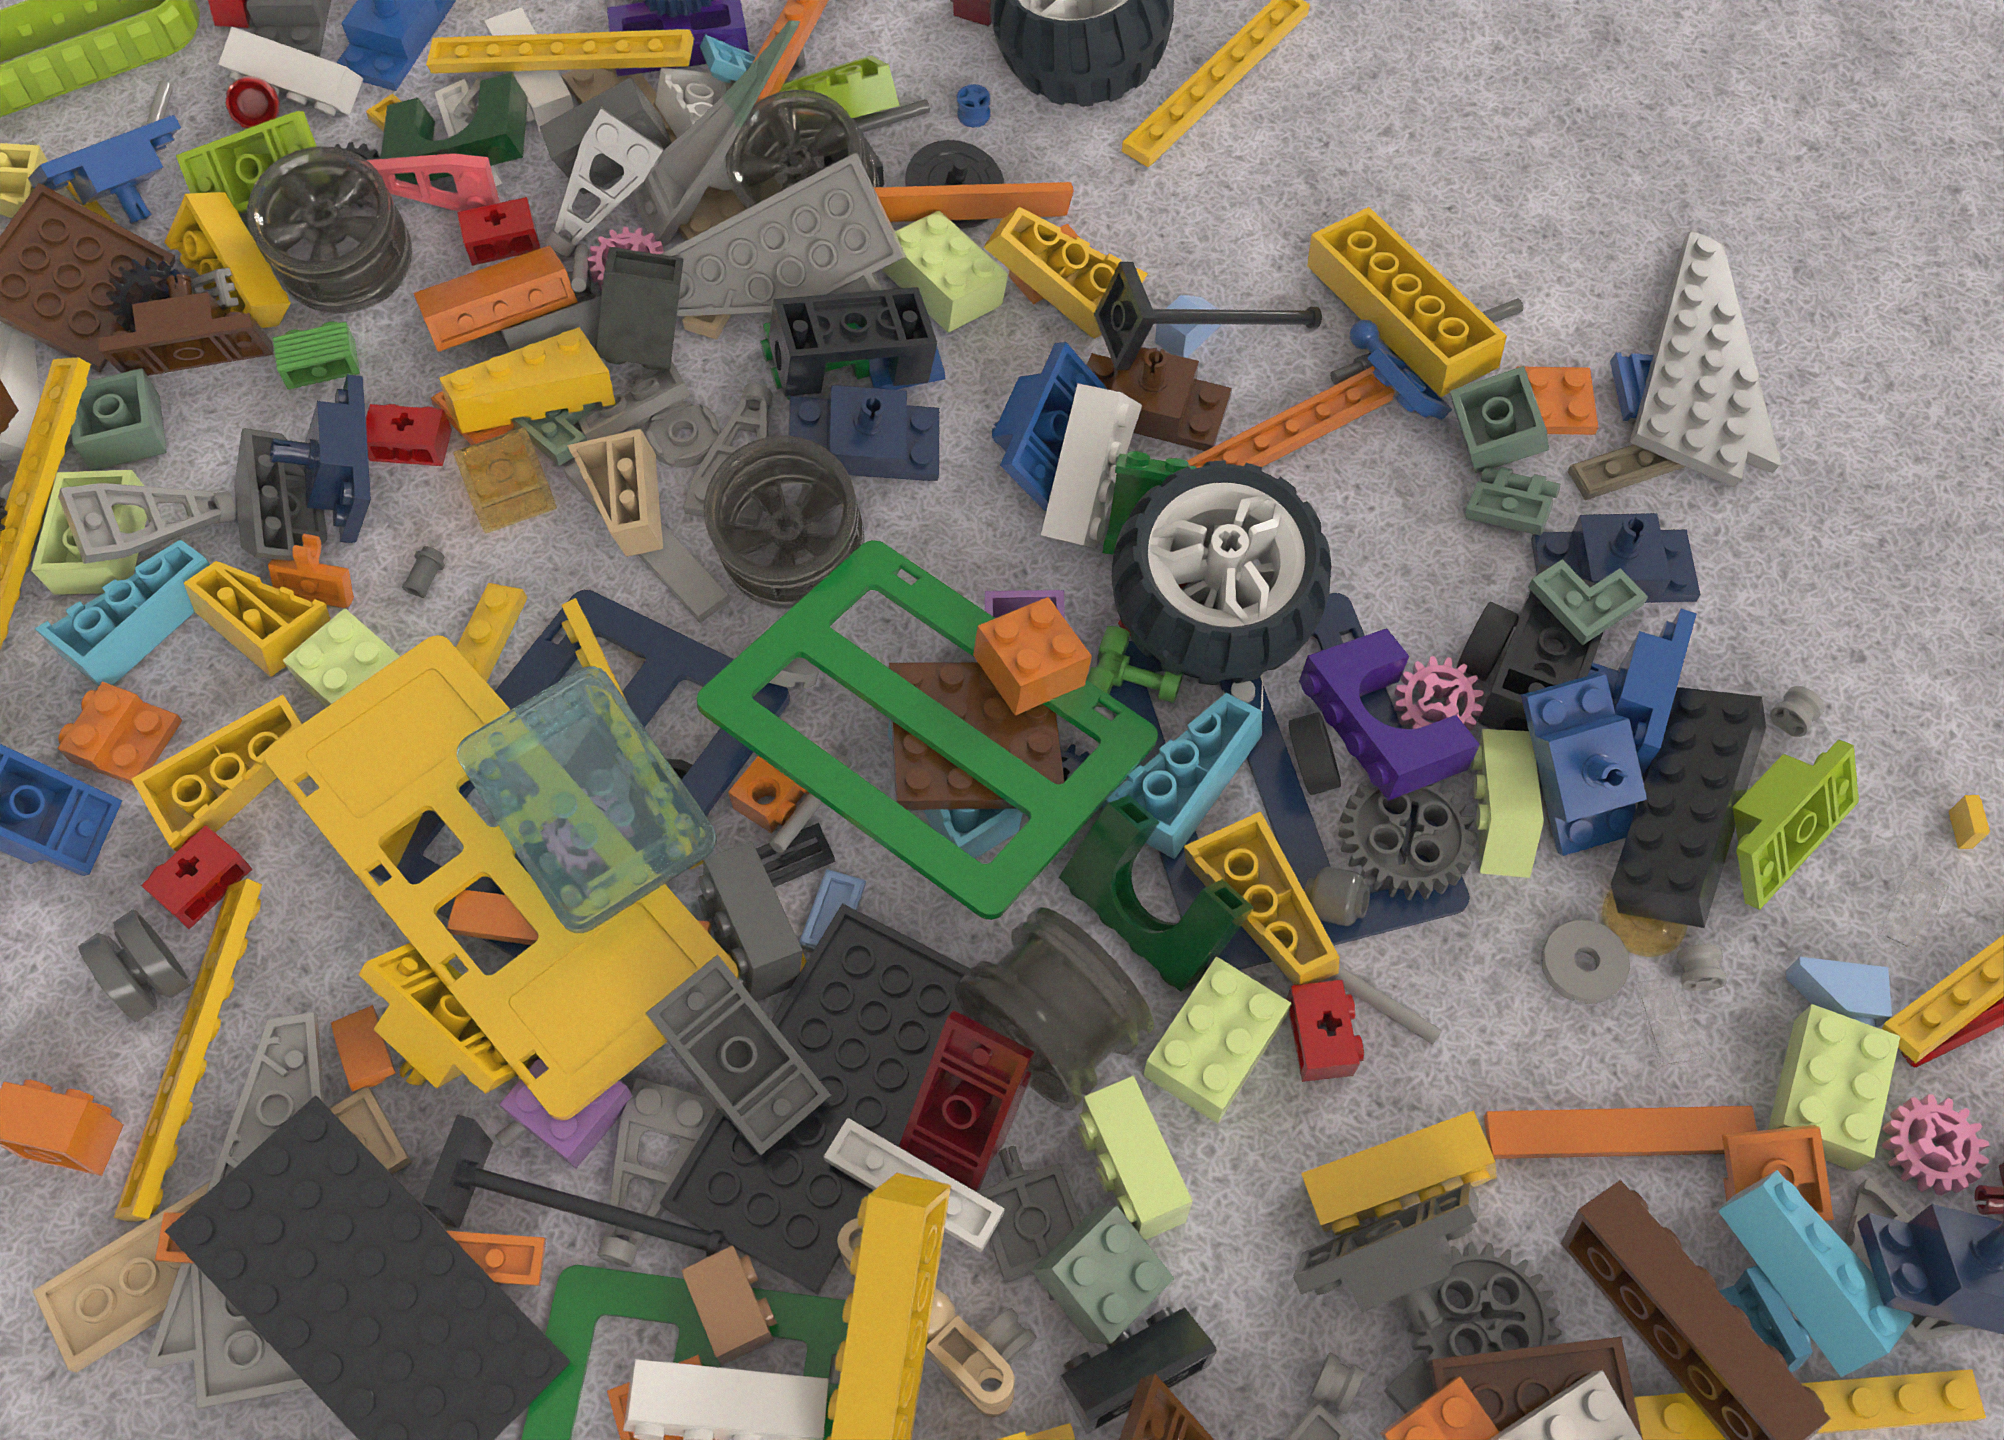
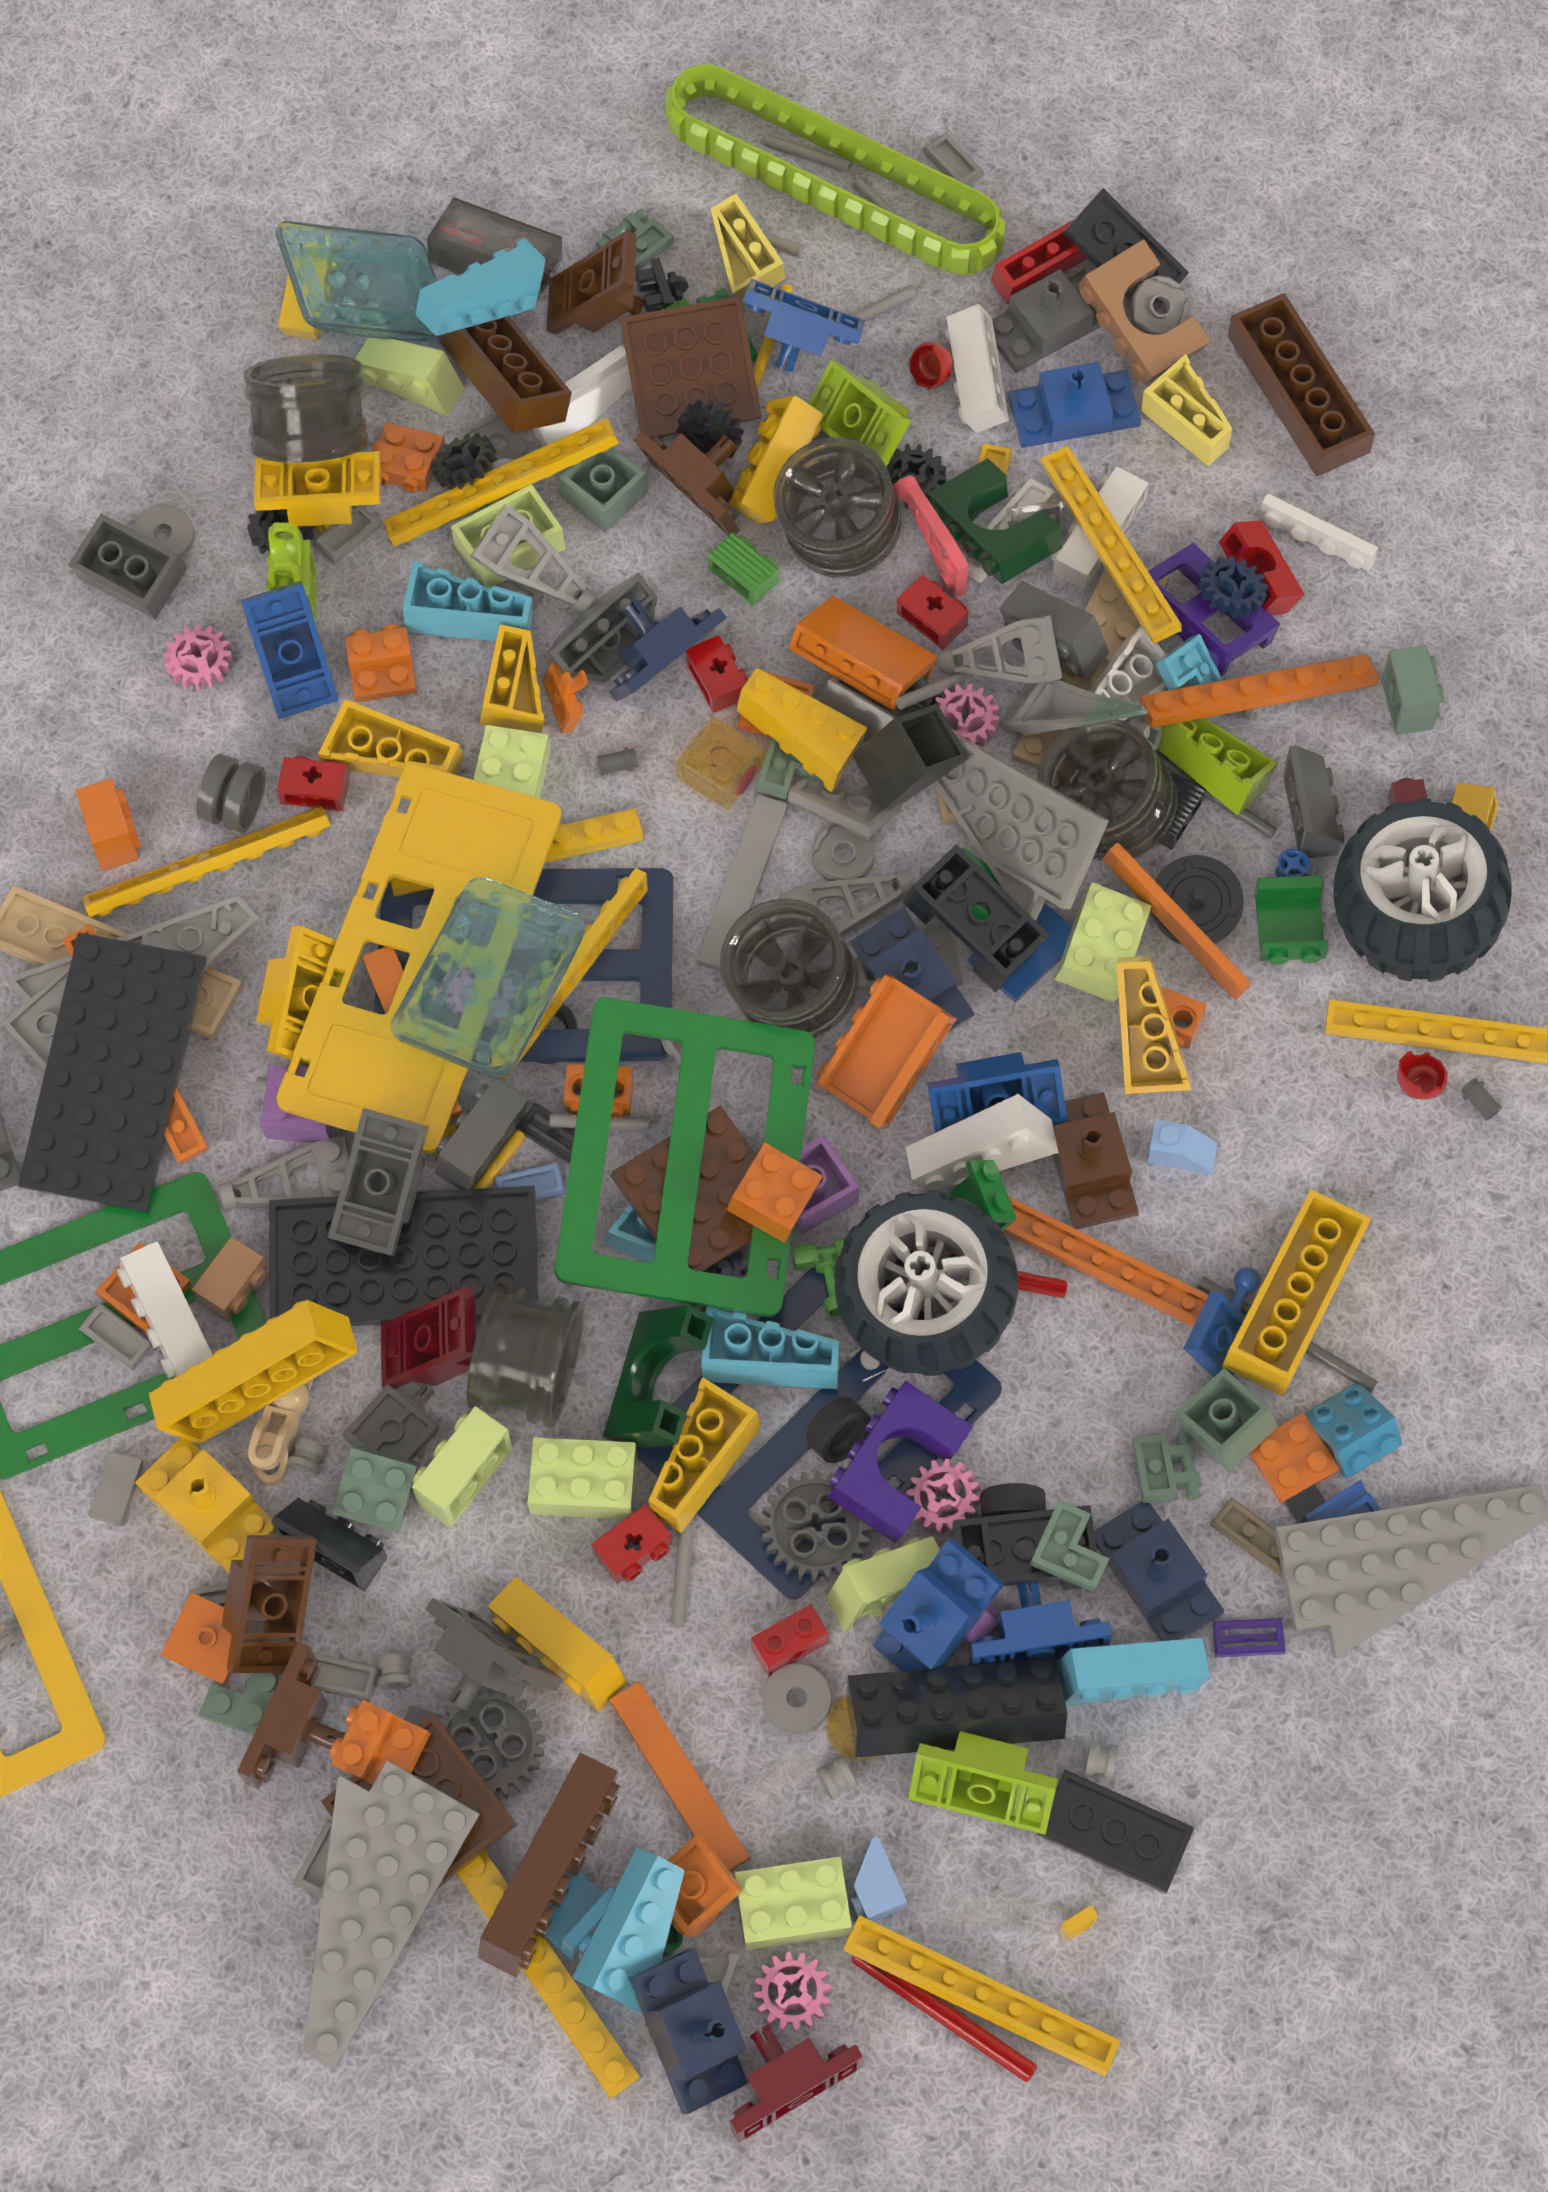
camera: 60 degrees right, 5 degrees up
(222, 289) = (745, 461): light grey tile -> none
(362, 1049) = (252, 966): orange slope -> none
(462, 1171) = (217, 1072): black tile -> none
(624, 487) = (755, 847): tan wedge -> none
(875, 1160) = (368, 1328): white plate -> none
(925, 60) = (1311, 803): none -> dark grey slope
(931, 491) = (885, 1050): none -> orange panel
(1020, 135) = (1290, 919): none -> green panel
(1127, 316) = (1119, 1097): black tile -> none
(1242, 117) = (1431, 1073): none -> red hair
(1289, 92) = (1480, 1098): none -> dark grey pin
(1338, 895) = (736, 1502): dark grey head -> none
(1522, 929) = (790, 1639): none -> red brick
(1554, 333) = (1355, 1428): none -> dark azure bracket
(1610, 416) = (1304, 1502): none -> black tile
(1710, 550) = (1218, 1640): none -> dark purple tile
(1723, 627) = (1132, 1670): none -> medium azure wedge
(1888, 731) = (1117, 1831): none -> black tile

